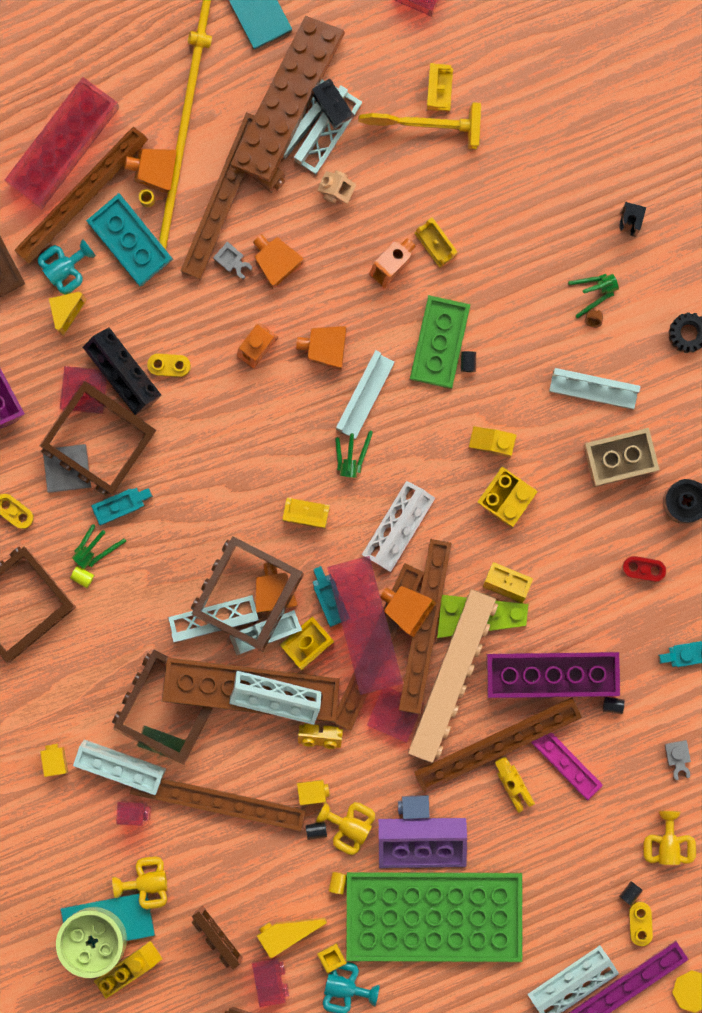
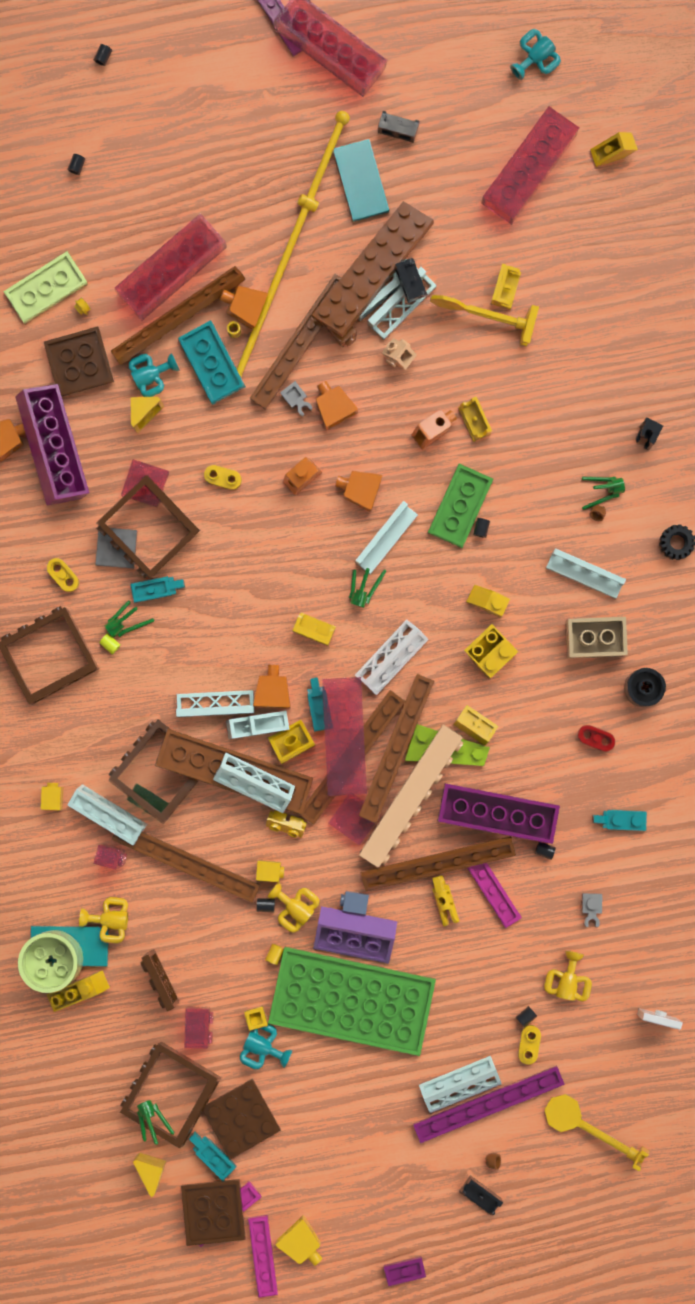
camera: 10 degrees right, 0 degrees up
(122, 371) = (181, 473): black brick -> none
(278, 610) = (274, 705): reddish brown window -> none
(282, 935) = (218, 989): yellow slope -> none
(407, 608) = (384, 729): orange torso -> none

